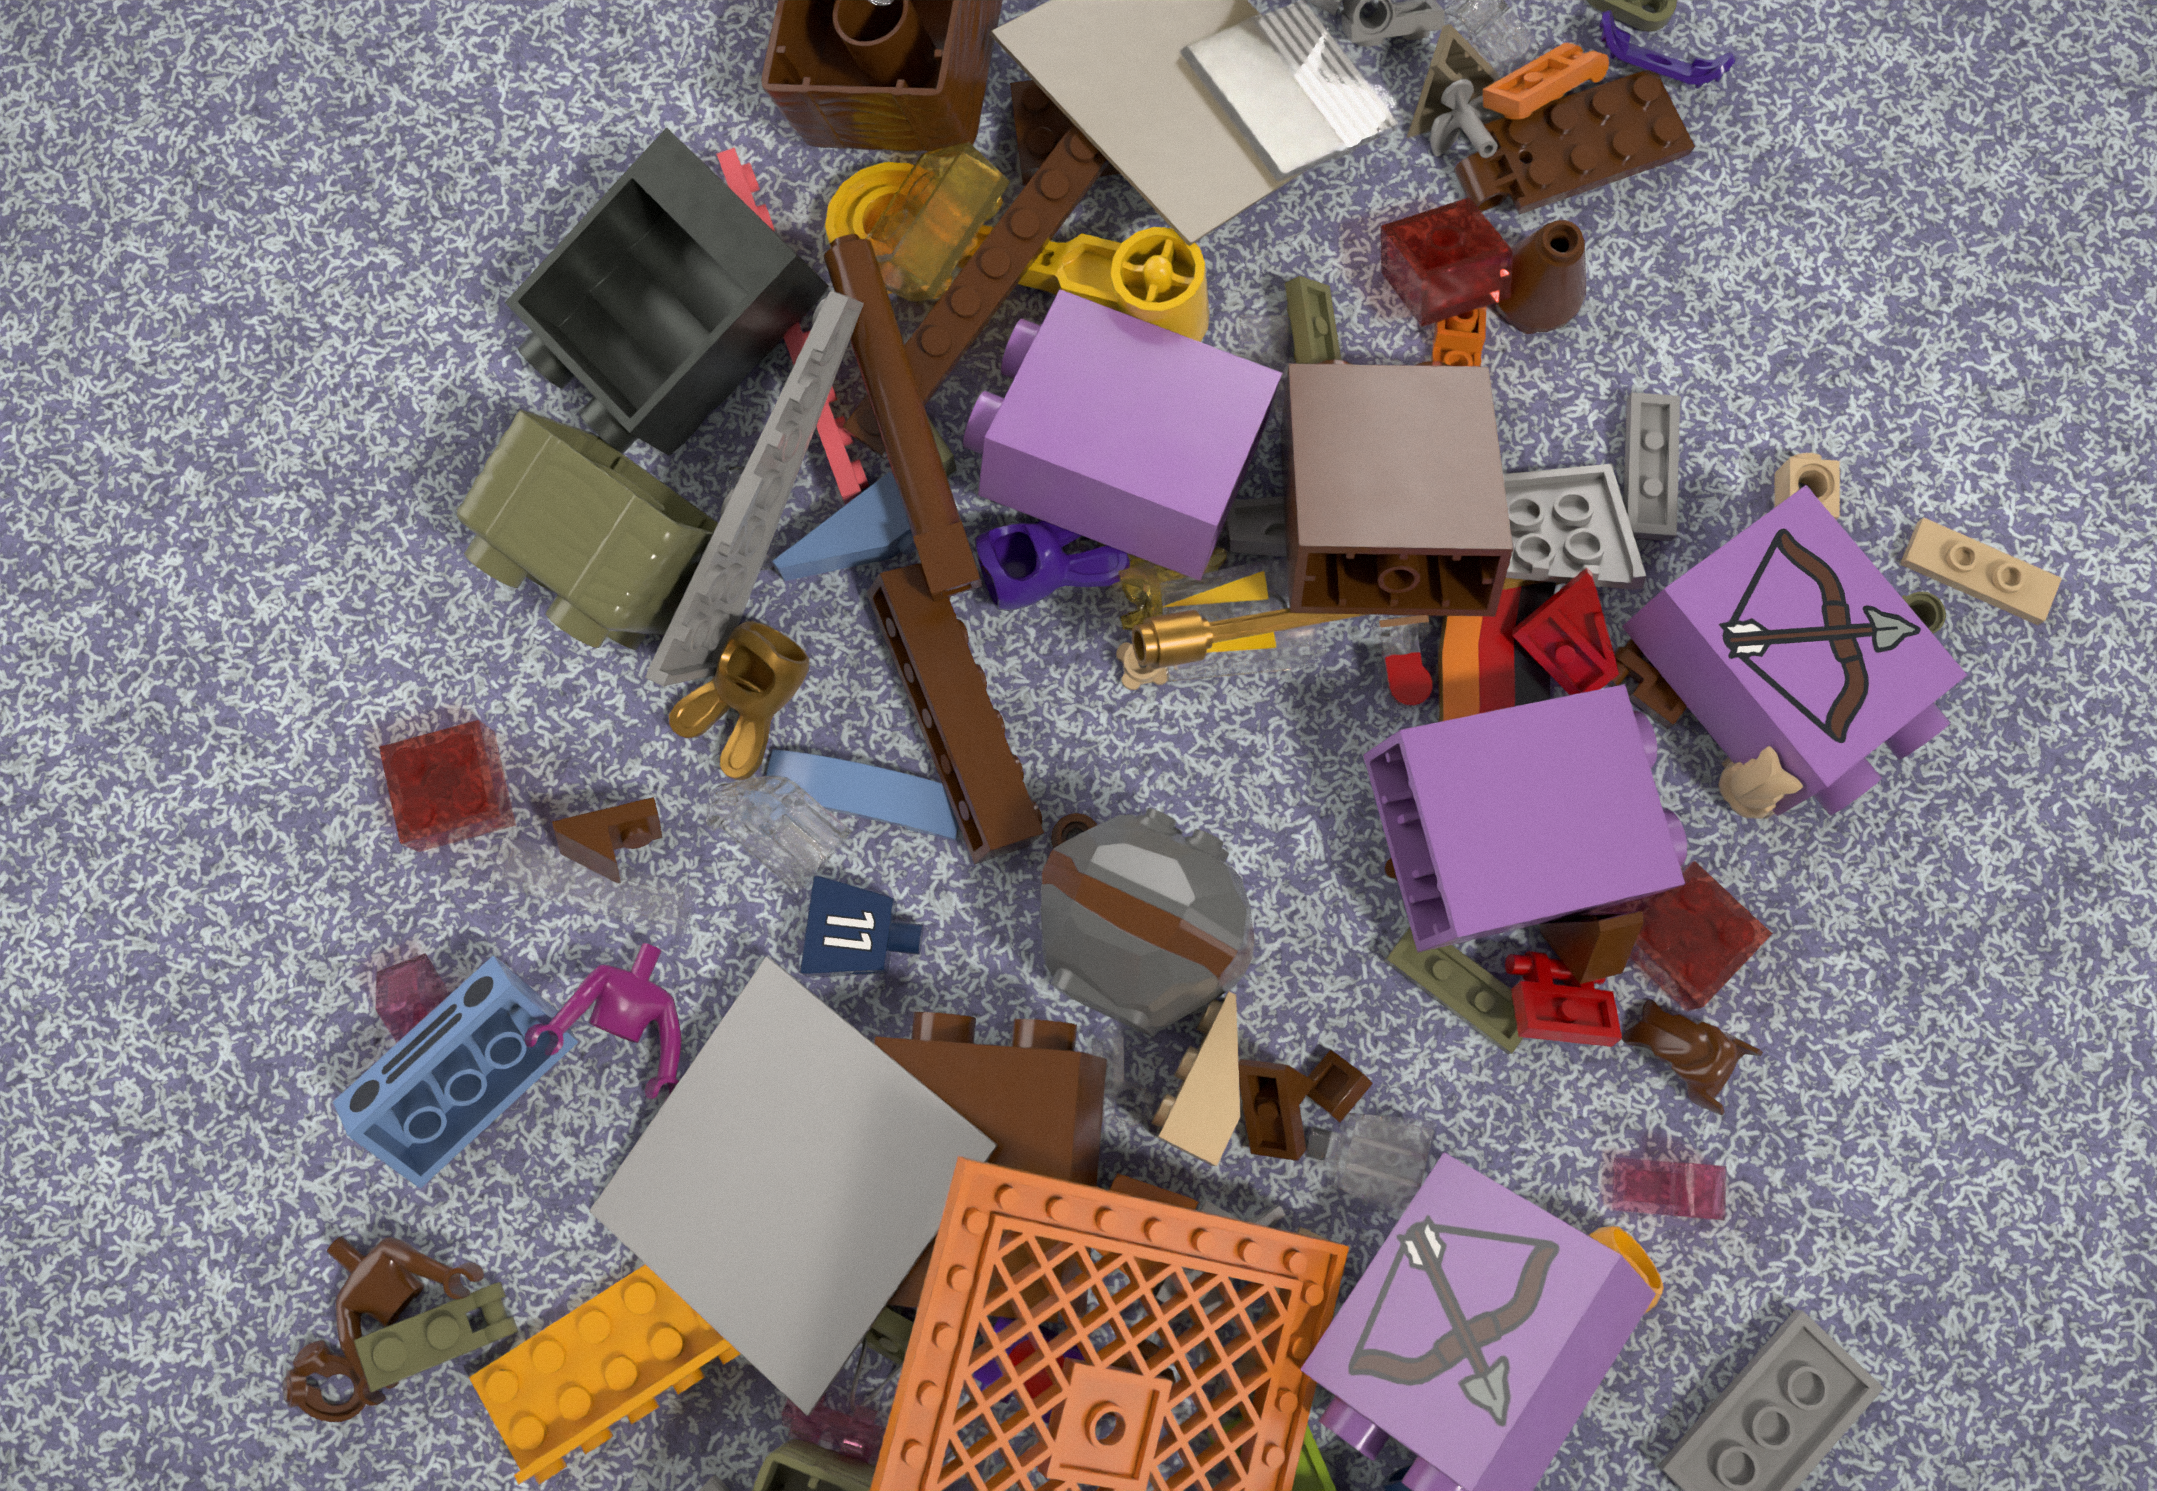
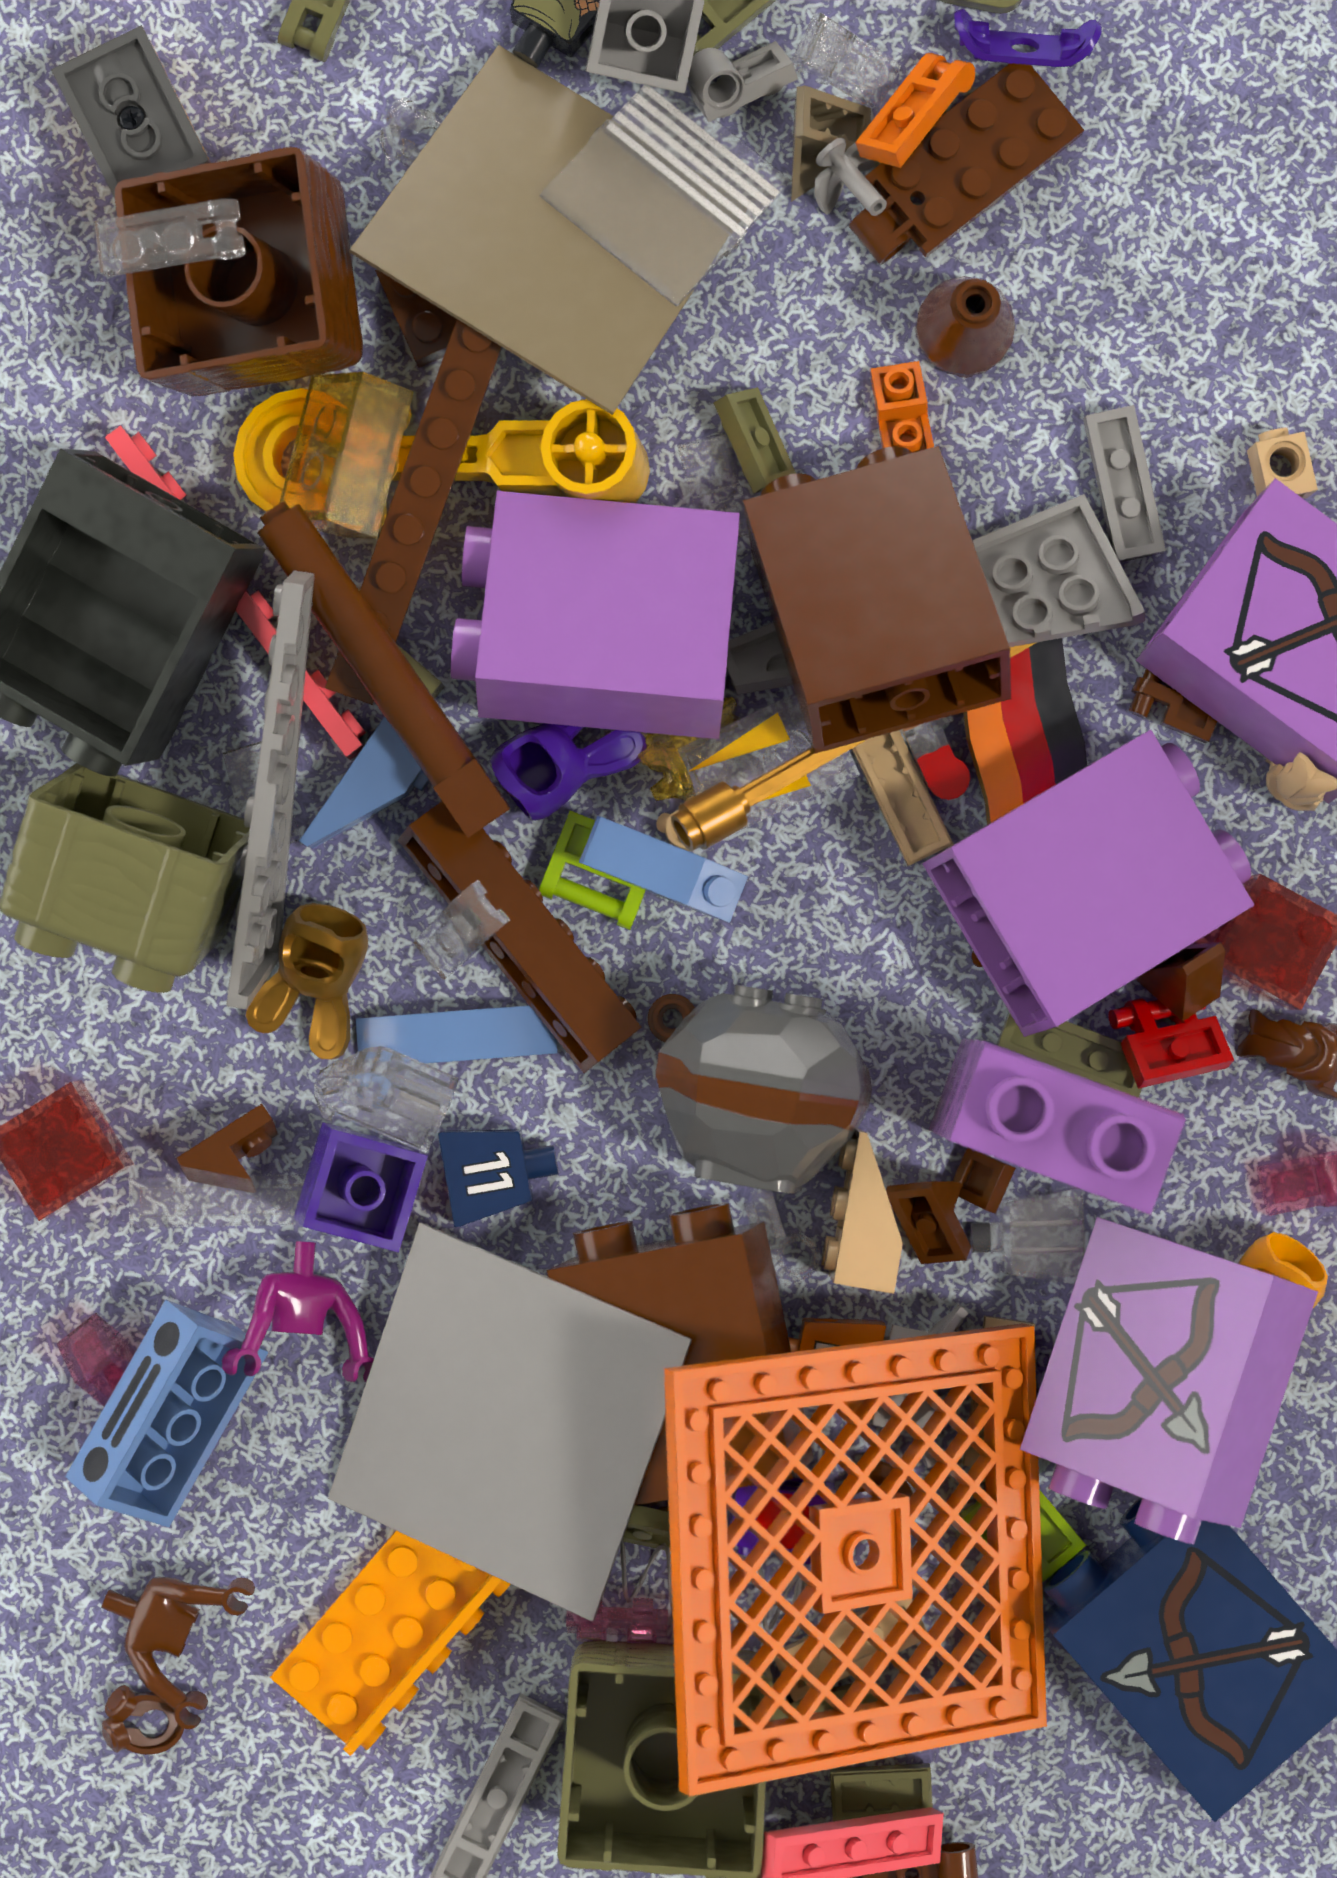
camera: 20 degrees left, 10 degrees up
(432, 1338) = (226, 1654): olive plate -> none
(721, 905) = (360, 1187): none -> dark purple brick
(897, 685) = (460, 930): none -> clear plate
(1059, 663) = (569, 851): none -> lime plate
(1111, 688) = (663, 869): none -> medium blue slope
(1358, 684) = (902, 796): none -> tan plate
(1434, 1039) = (1057, 1124): none -> medium lavender brick
(1446, 261) = (867, 337): clear red brick -> none
(1571, 637) = (1090, 688): red wing -> none

